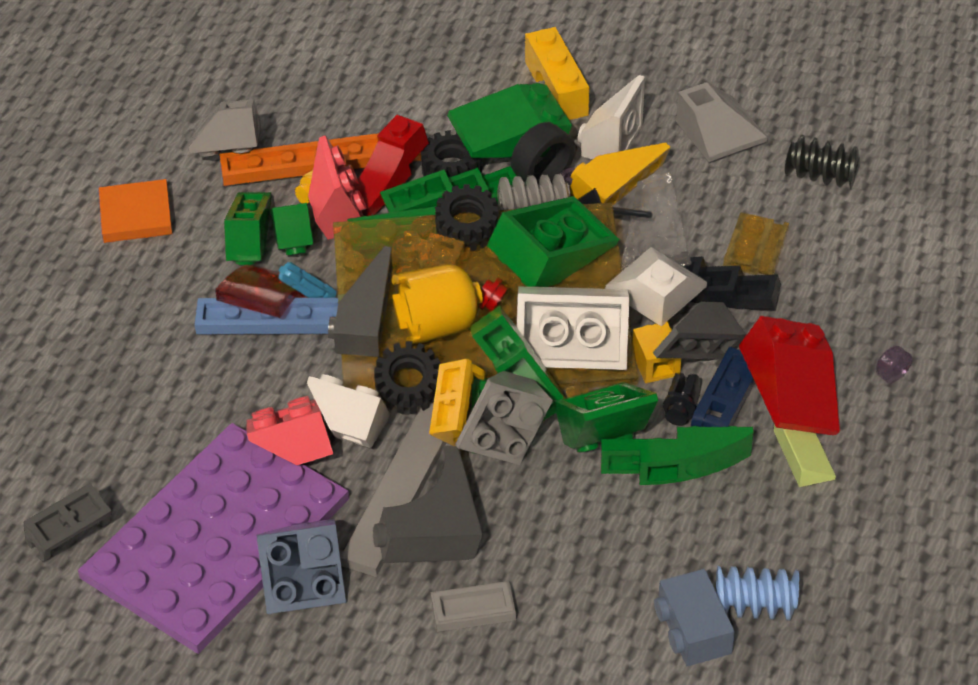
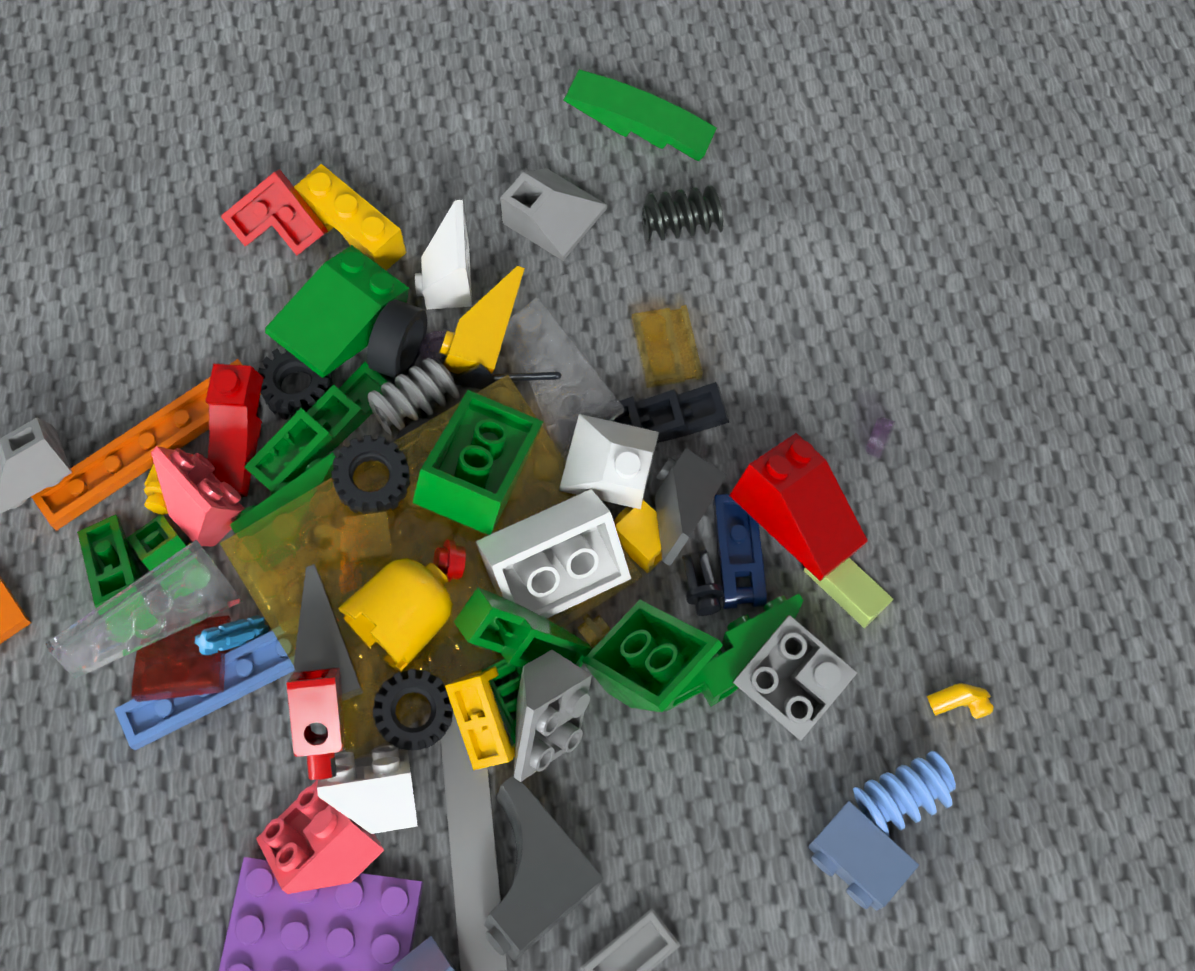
camera: 30 degrees left, 20 degrees up
(257, 243) = (153, 607): none -> clear wing
(335, 326) = (317, 698): none -> torso
(506, 44) = (276, 205): none -> plate
(715, 477) = (794, 677): none -> light grey slope
(832, 85) = (640, 112): none -> green slope
(851, 556) = (962, 695): none -> yellow arm

